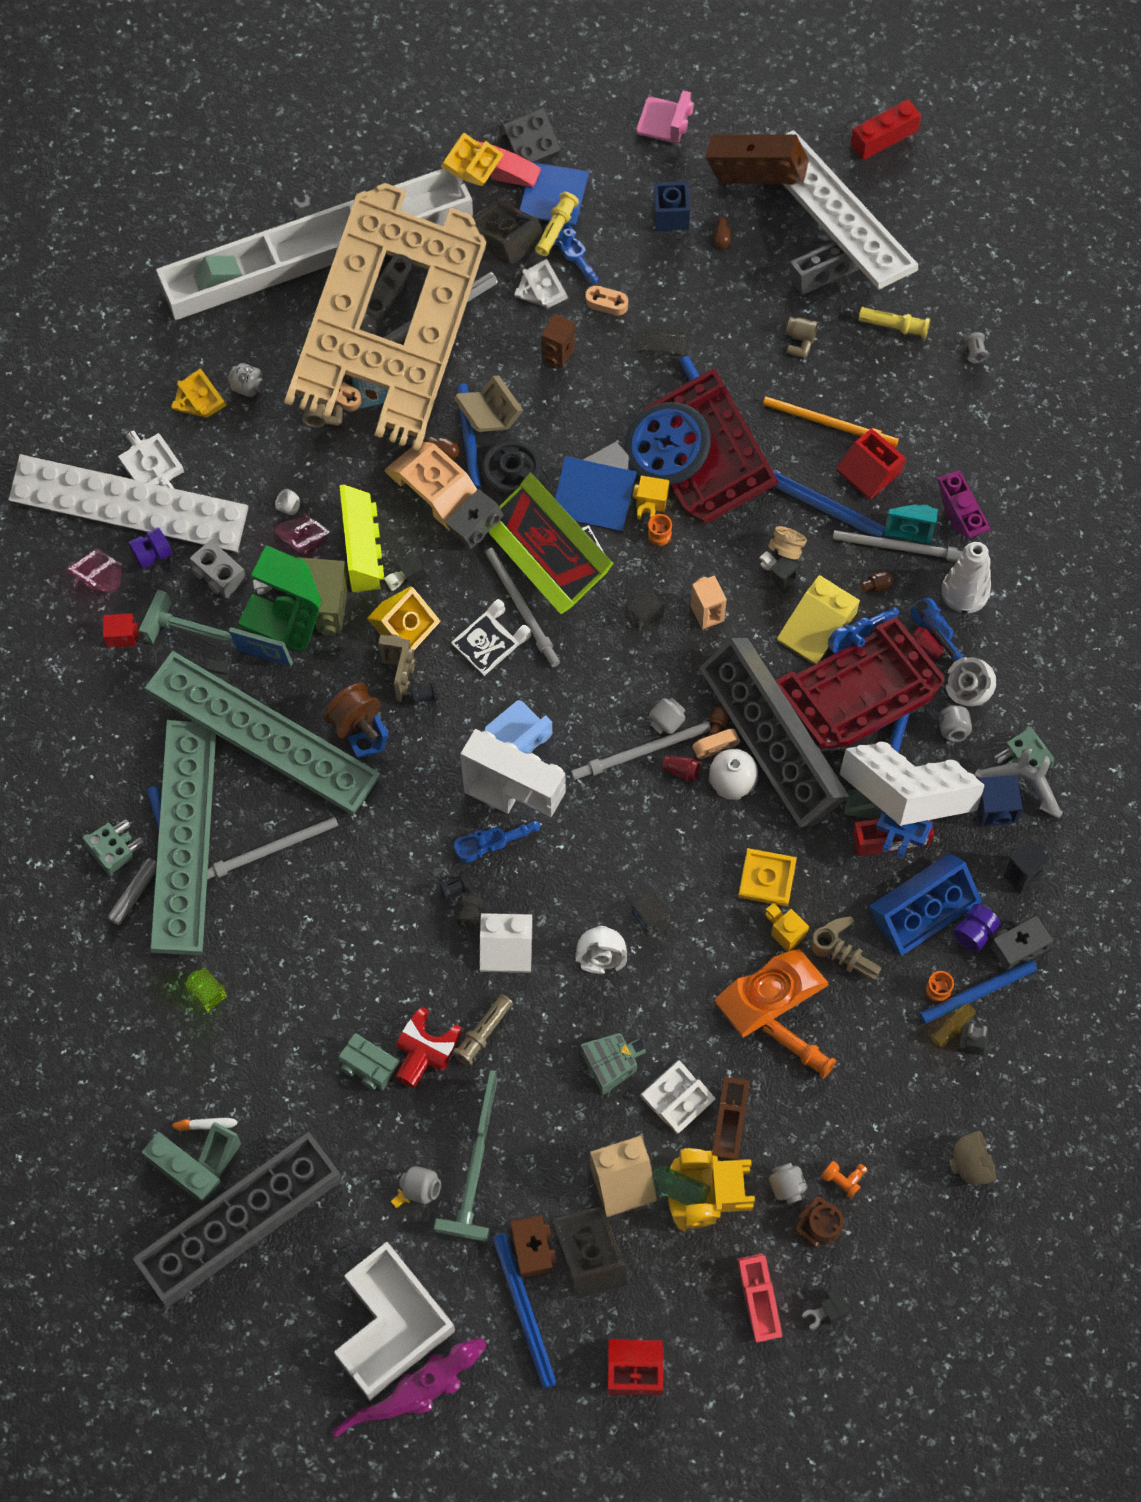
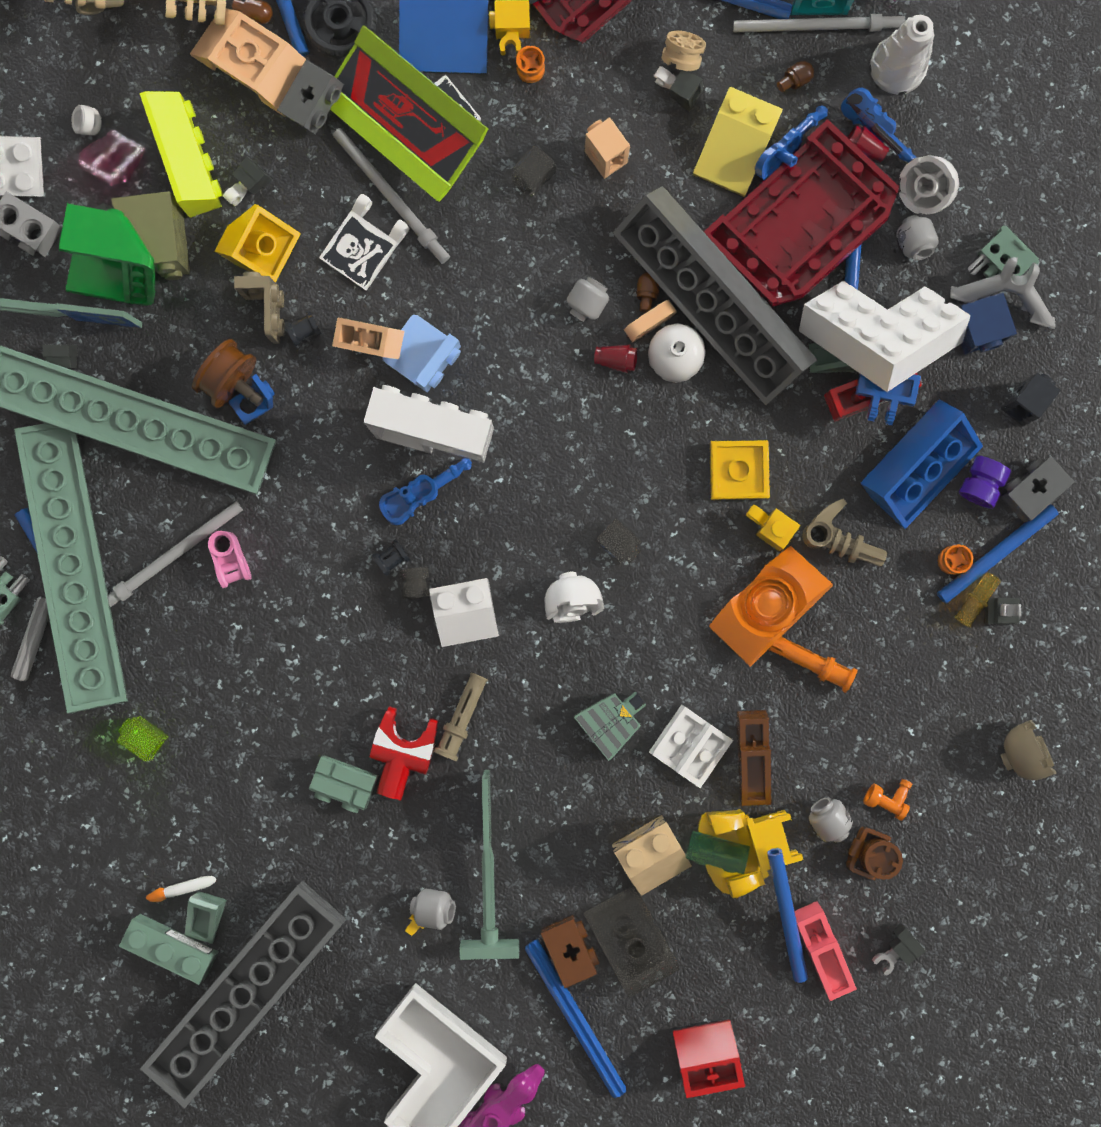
camera: 10 degrees left, 20 degrees up
(316, 862) = (228, 560): none -> bright pink piece
(477, 707) = (368, 338): none -> light nougat brick
(597, 766) = (519, 376): light grey bar -> none
(732, 1251) = (787, 915): none -> blue piece

